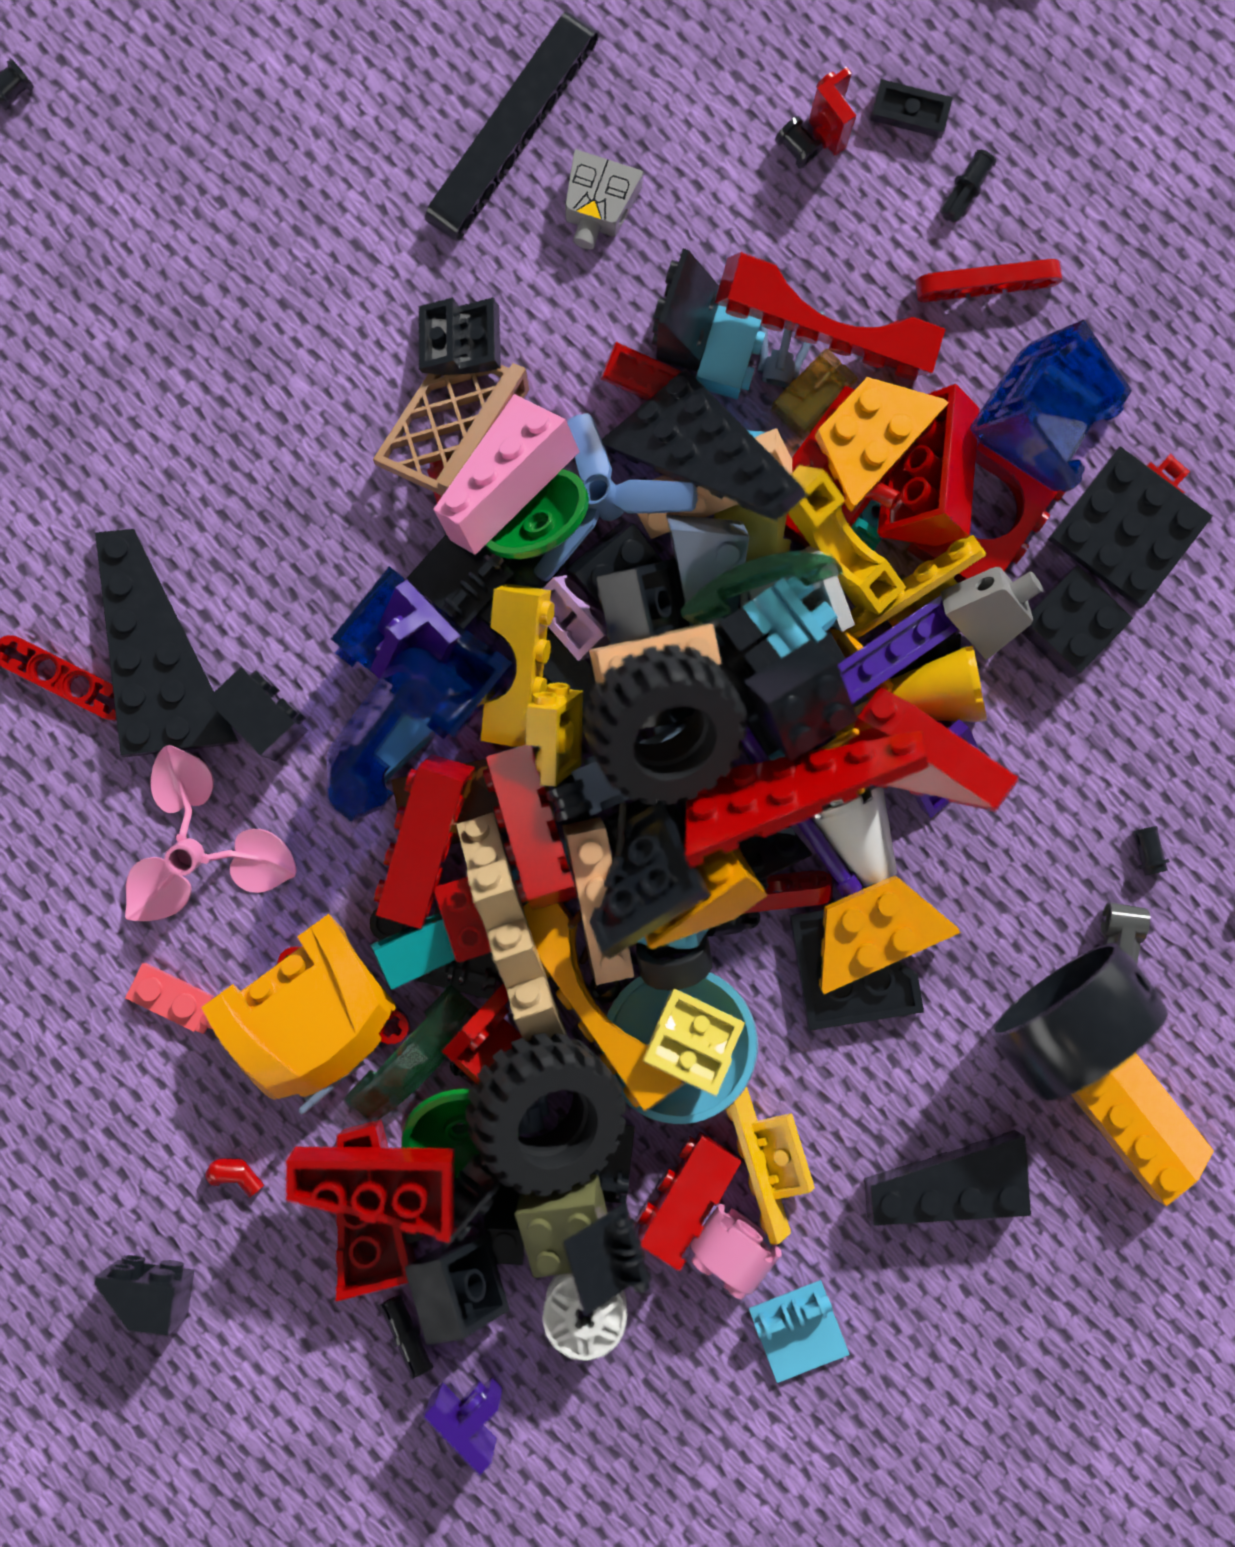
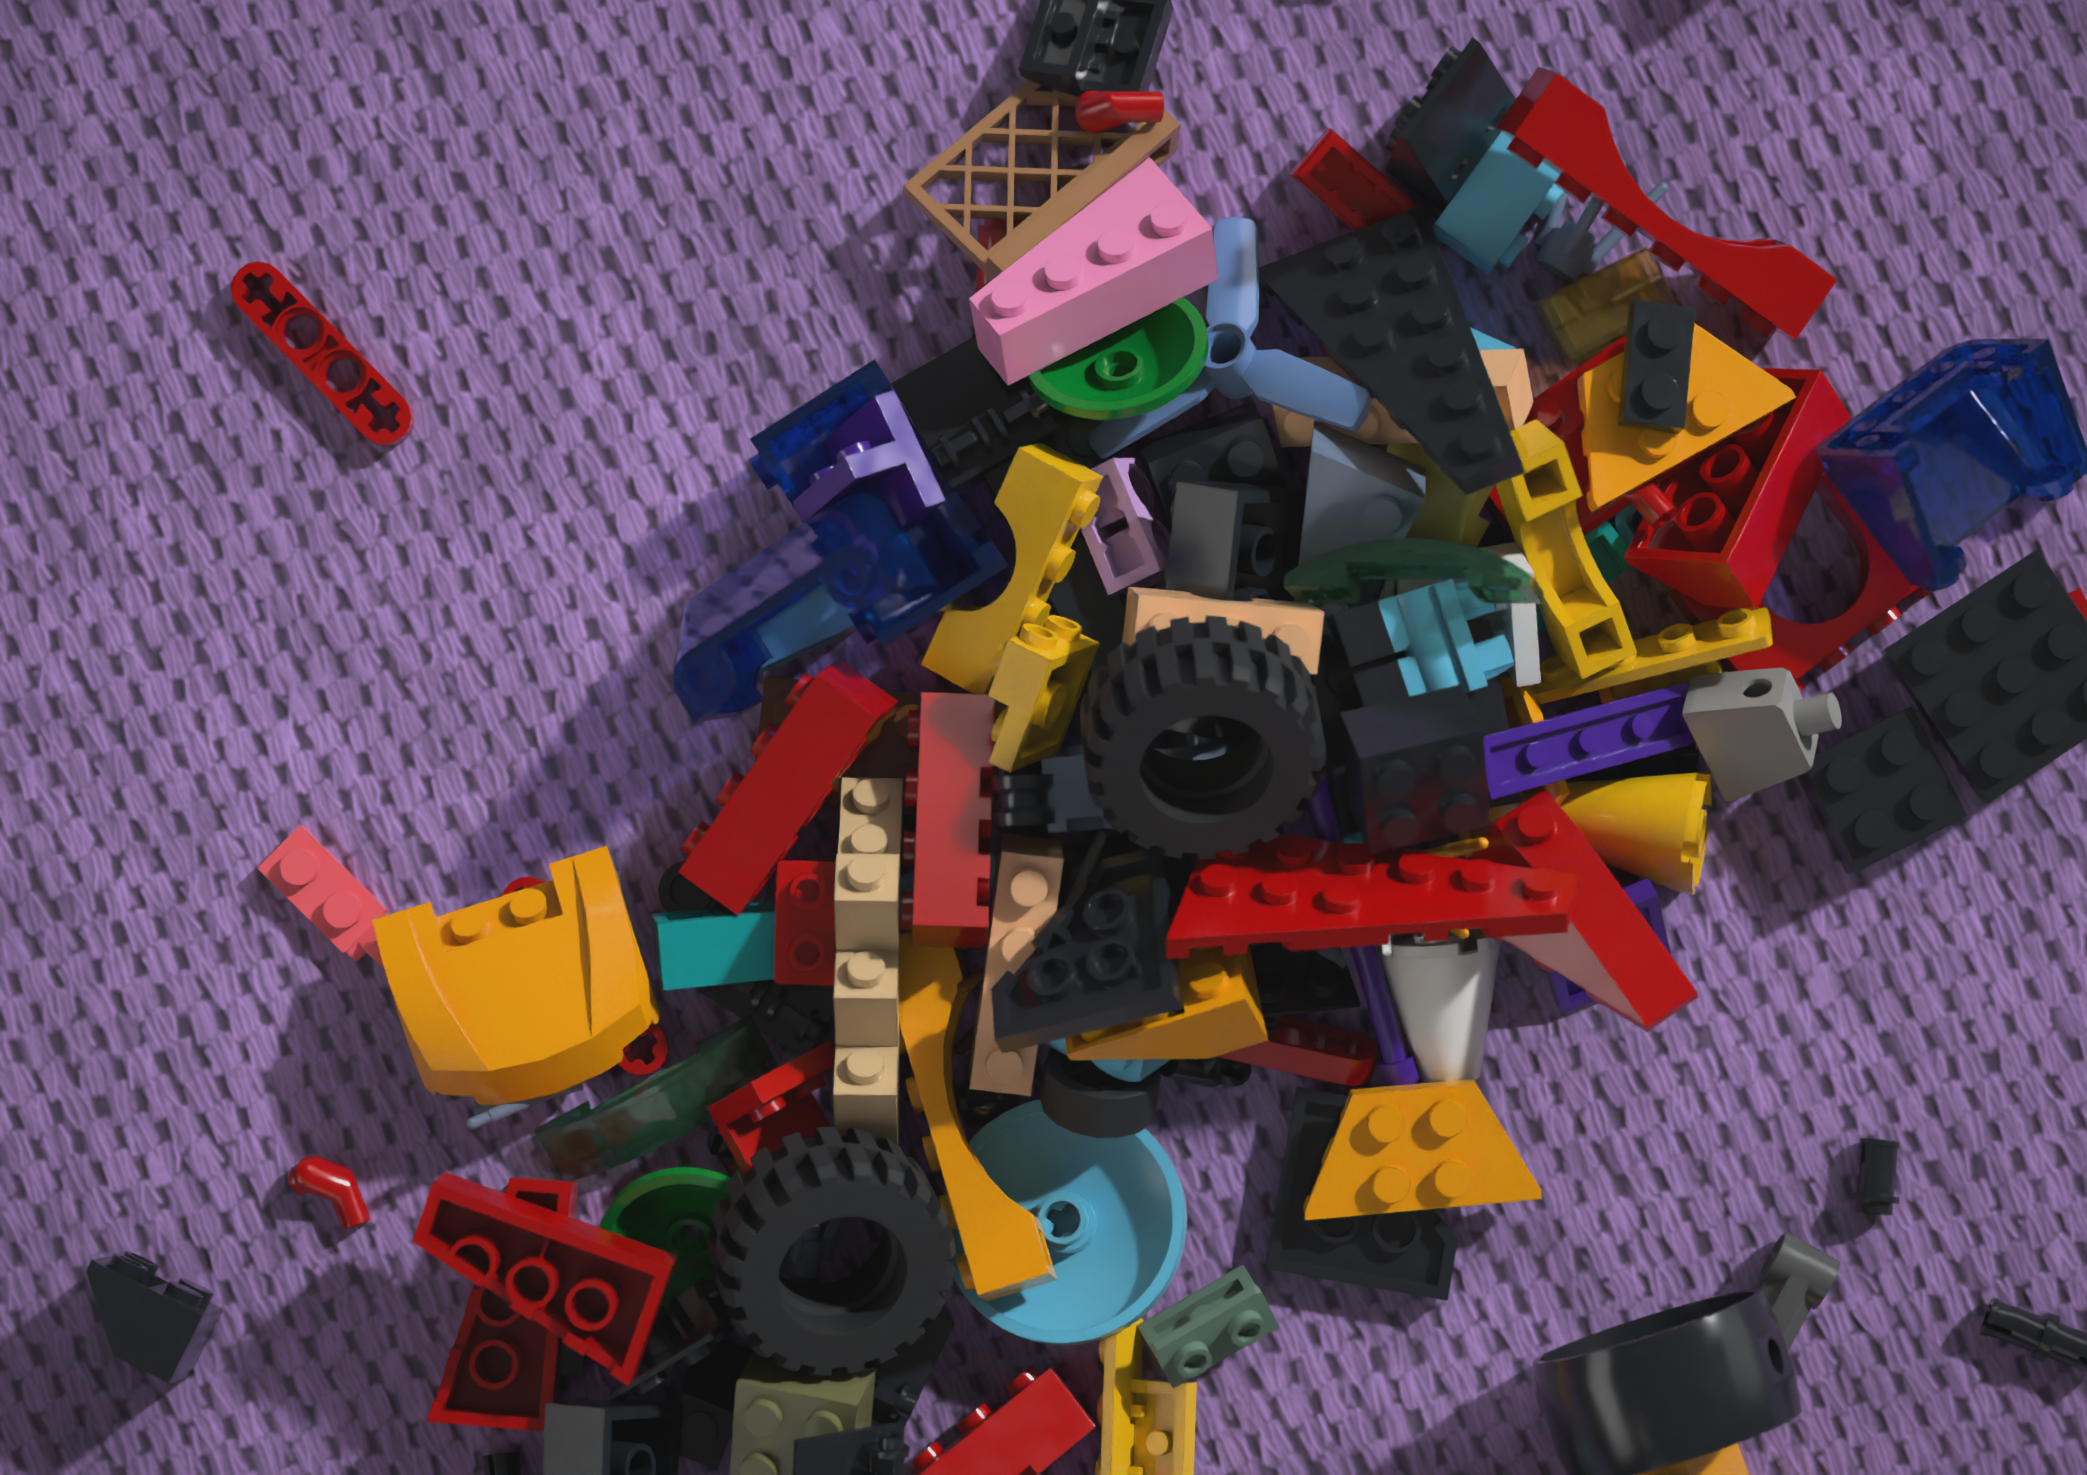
camera: 20 degrees right, 0 degrees up
(153, 667) = (466, 399): black wing -> none
(157, 885) = (359, 722): bright pink plant -> none
(257, 714) = (601, 511): black brick -> none
(482, 371) = (1109, 109): none -> red arm
(693, 1042) = (1085, 1219): light yellow slope -> none
(787, 1077) = (1208, 1326): none -> sand green bracket
(861, 409) = (1656, 366): none -> black plate
(967, 185) = (1954, 66): black axle -> none
(988, 280) = (1934, 224): red beam -> none

